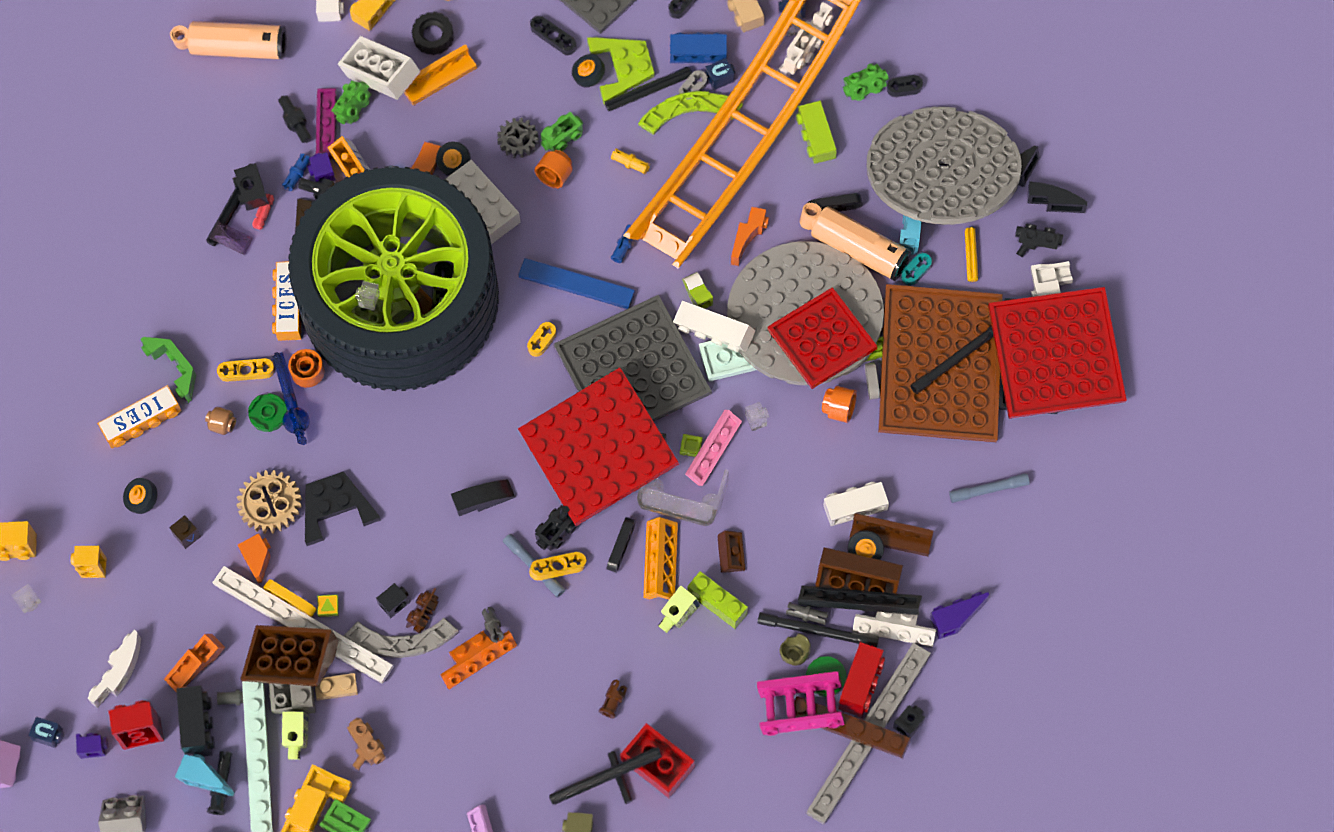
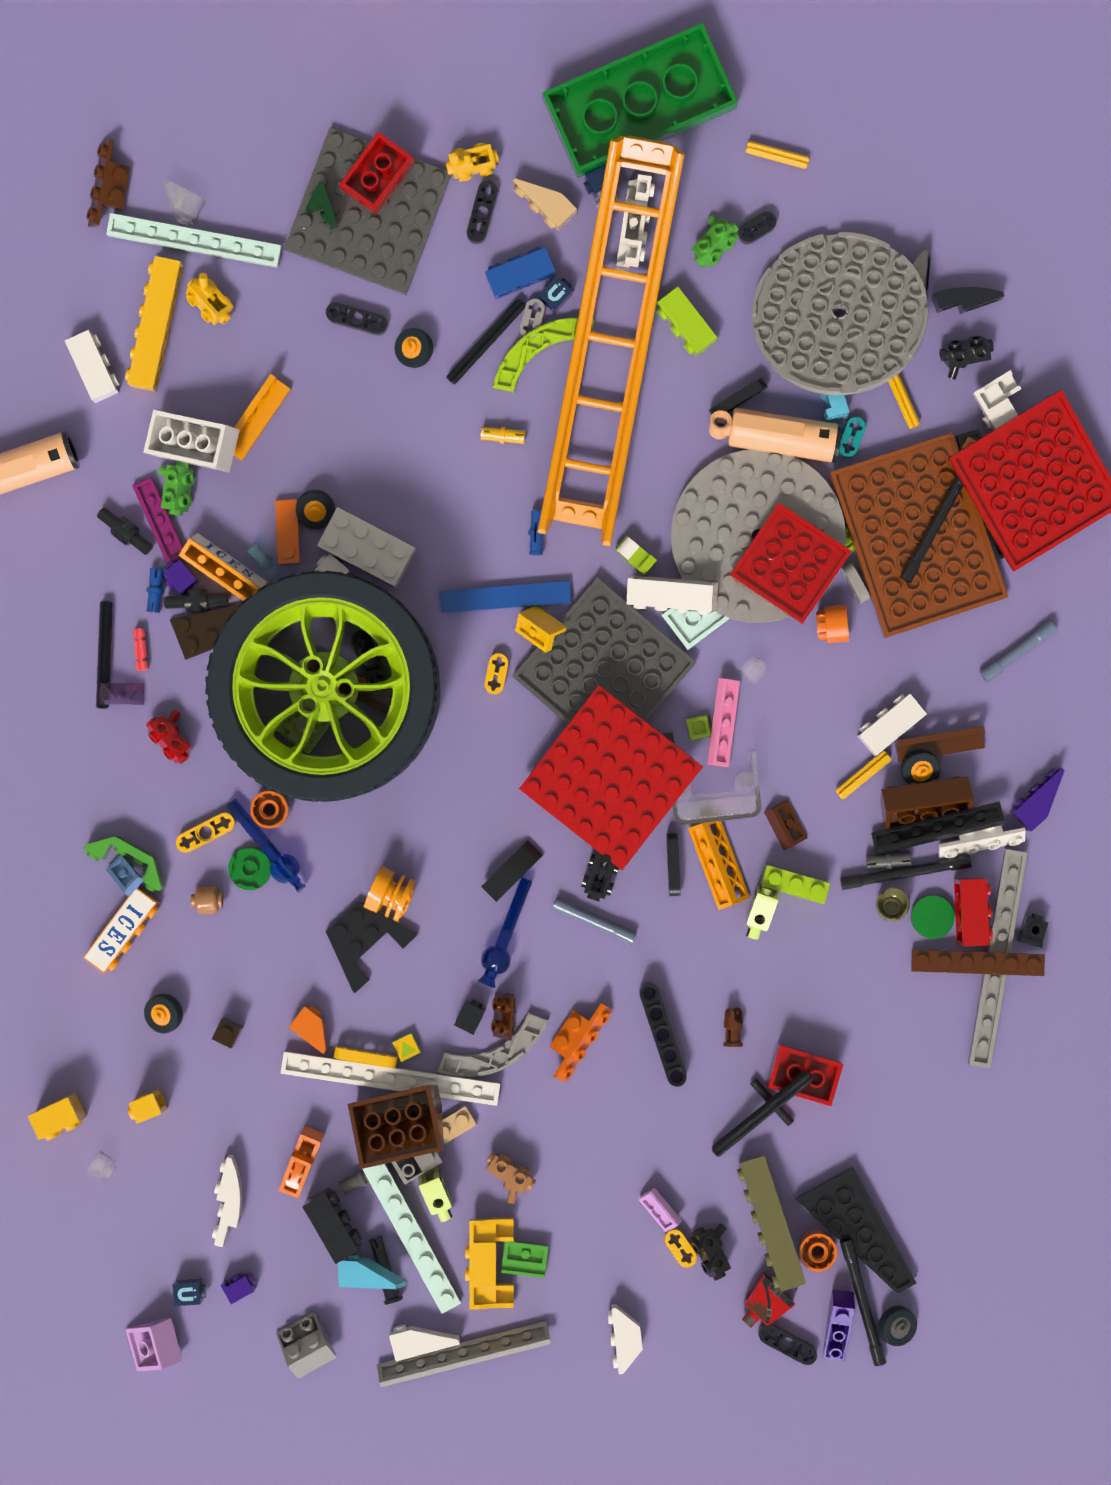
camera: 25 degrees left, 20 degrees up
(136, 724) = (278, 1256): red brick -> none
(163, 374) = (124, 875): none -> medium blue plate
(251, 282) = (167, 736): none -> red brick
(255, 196) = (129, 637): black brick -> none
(285, 495) = (283, 979): tan gear -> none
(286, 311) = (223, 767): brick -> none
(368, 295) = (318, 740): clear plate -> none
(372, 471) = (390, 893): none -> light orange wheel
(437, 560) = (497, 958): none -> clear blue piece
(439, 45) = (243, 369): black tyre -> none
(492, 624) = (582, 1003): dark grey pin -> none
(526, 134) = (380, 451): dark grey gear -> none
(551, 572) = (635, 908): yellow beam -> none
(551, 689) = (662, 1045): none -> black beam
(554, 168) = (427, 478): orange piece -> none
(556, 137) = (413, 439): bright green brick -> none
(591, 313) = (539, 627): none -> yellow panel
(630, 63) = (454, 319): lime wing -> none
(746, 232) = (665, 453): orange slope -> none
(802, 684) = (922, 938): dark pink fence -> none
(814, 536) = (863, 775): none -> yellow axle
(944, 39) = (777, 154): none -> yellow axle

